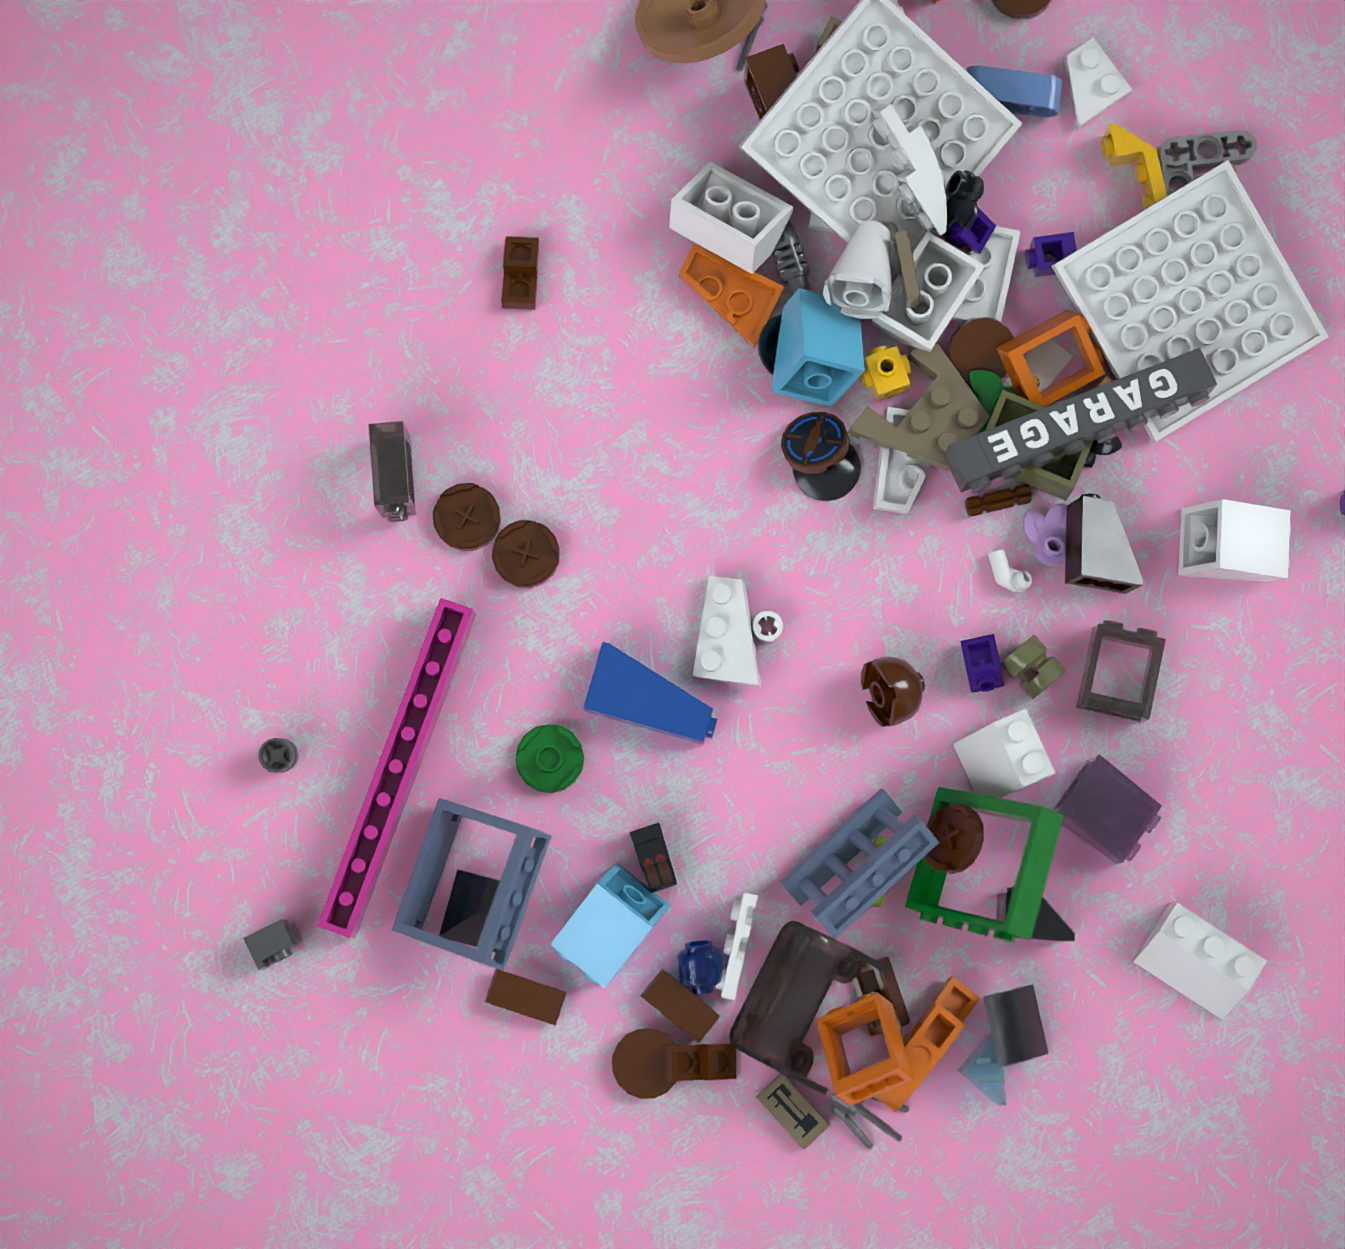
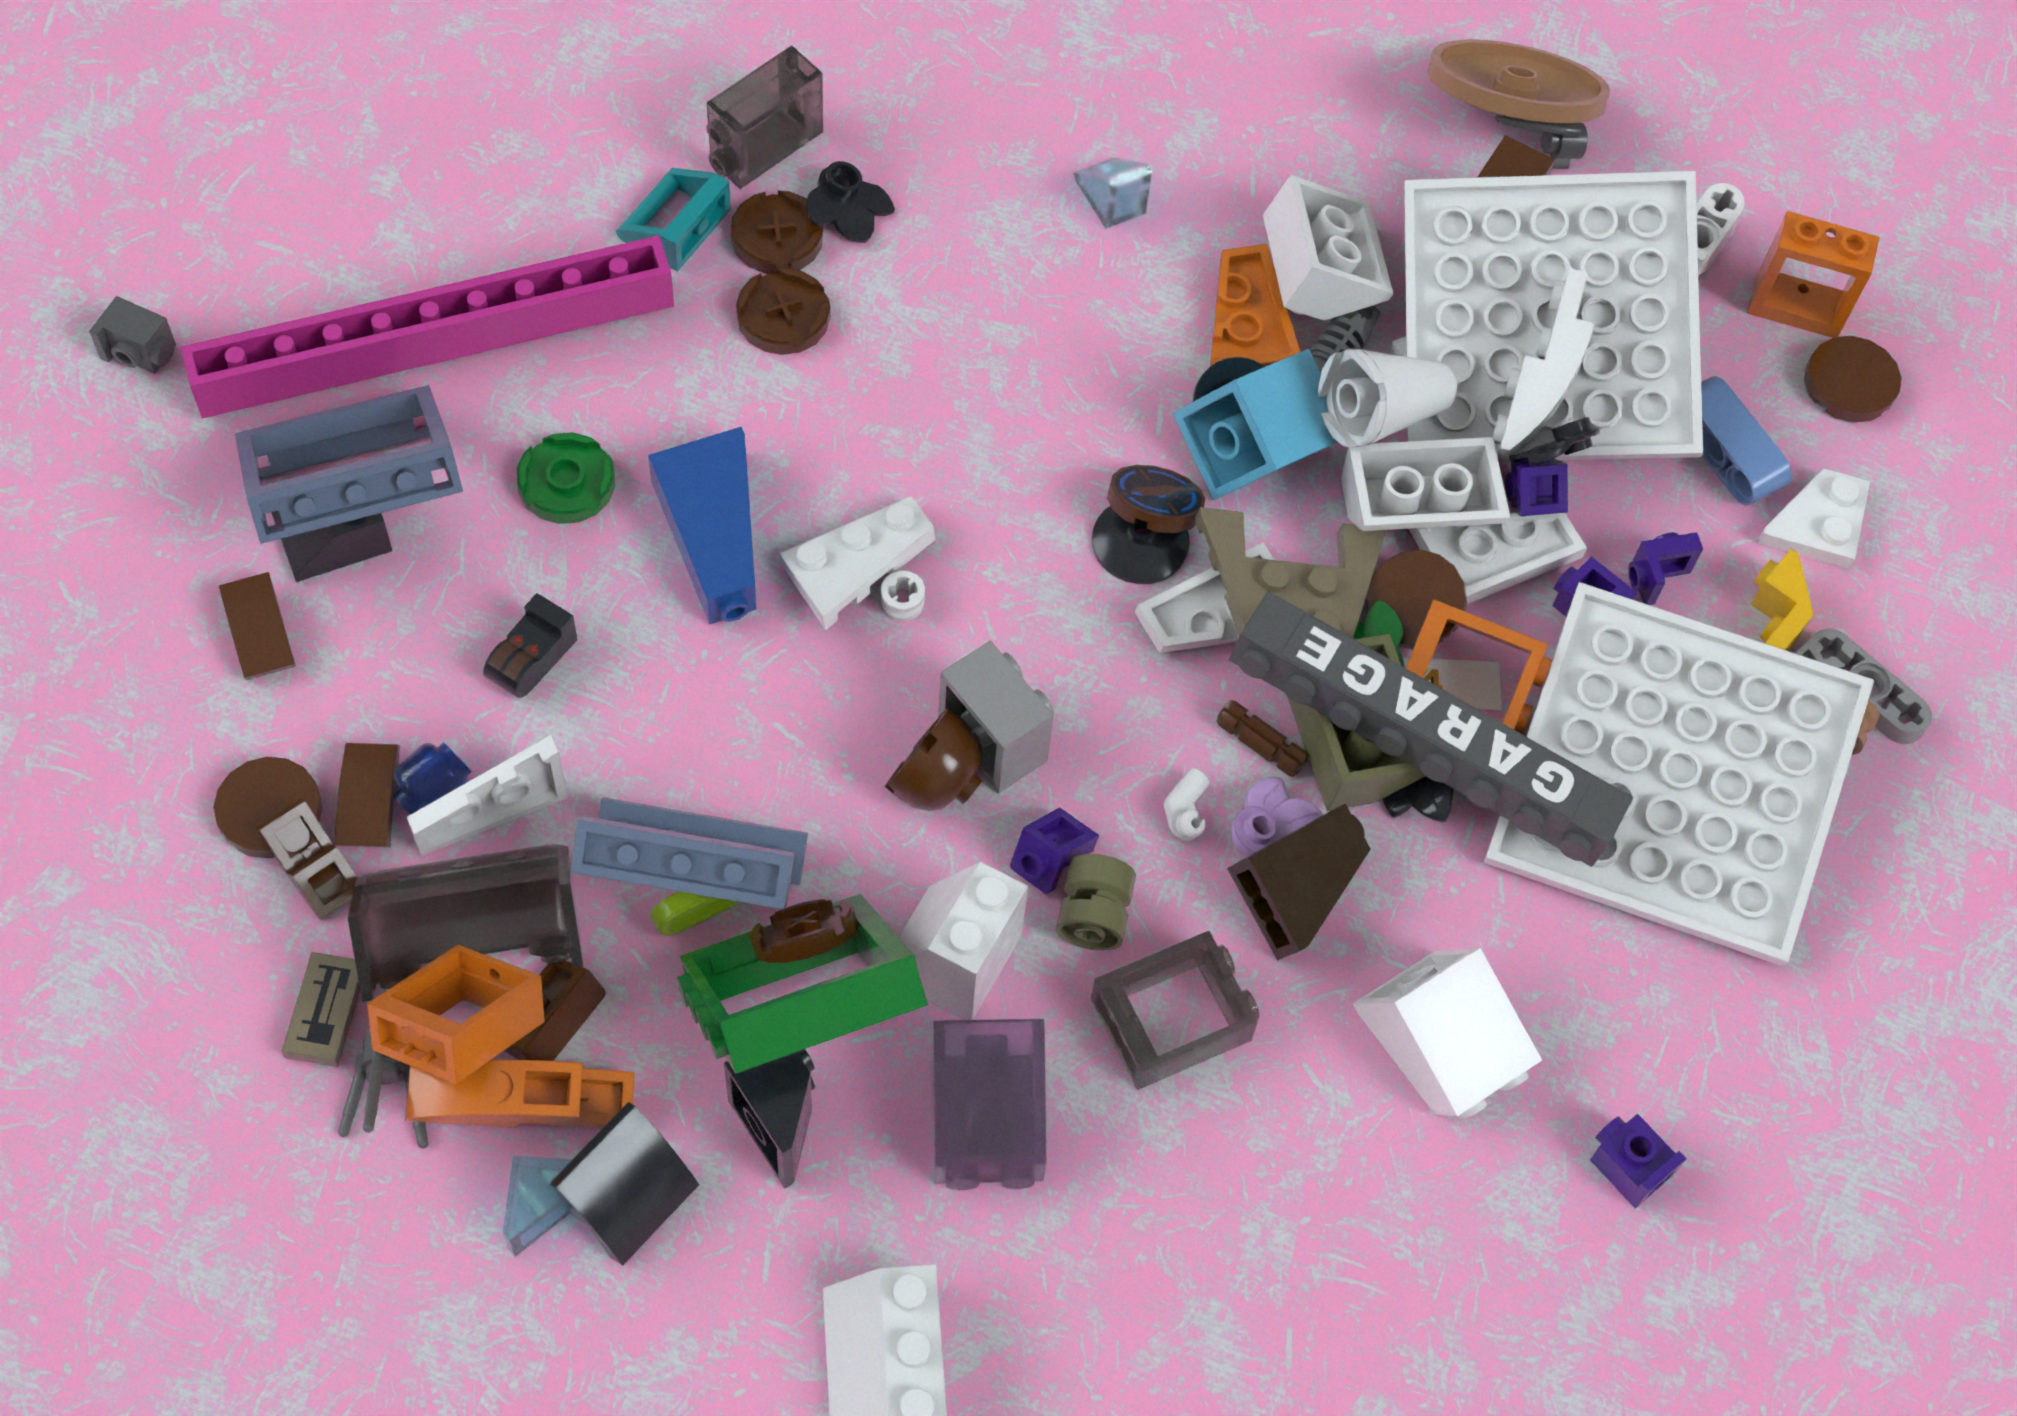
camera: 45 degrees right, 20 degrees down
(272, 755) = (359, 215): dark grey wheel -> none
(438, 586) = (693, 223): none -> teal tile
(484, 462) = (847, 202): none -> black plate
(520, 272) = (1092, 115): reddish brown slope -> none
(583, 298) = (1116, 189): none -> clear light blue slope
(609, 925) = (410, 650): medium azure slope -> none
(887, 383) = (1298, 516): yellow brick -> none
(892, 636) = (1003, 712): none -> light grey brick
(906, 269) = (1428, 433): dark tan tile -> none
(1054, 189) = (1662, 558): none -> dark purple bracket

